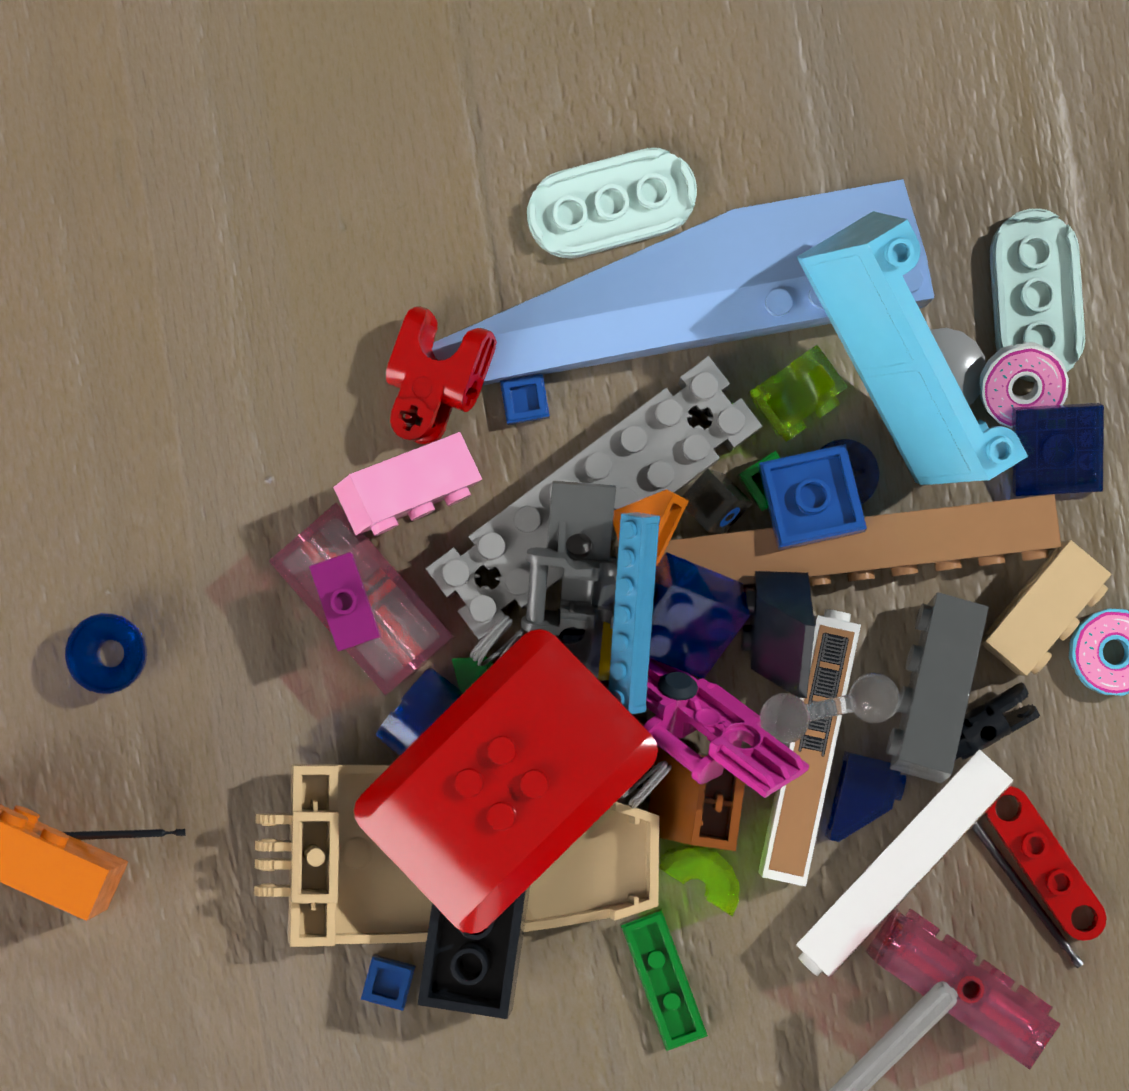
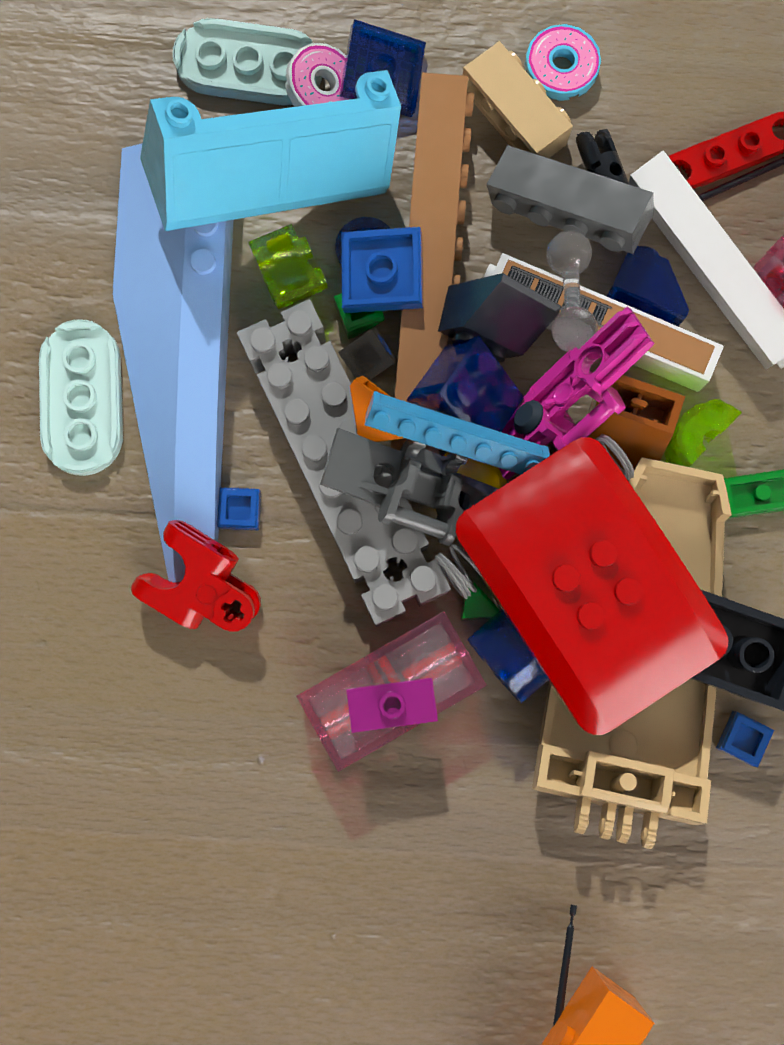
camera: 85 degrees left, 5 degrees down
(84, 648) = (399, 971): clear blue piece -> none
(408, 485) = (295, 626): bright pink brick -> none

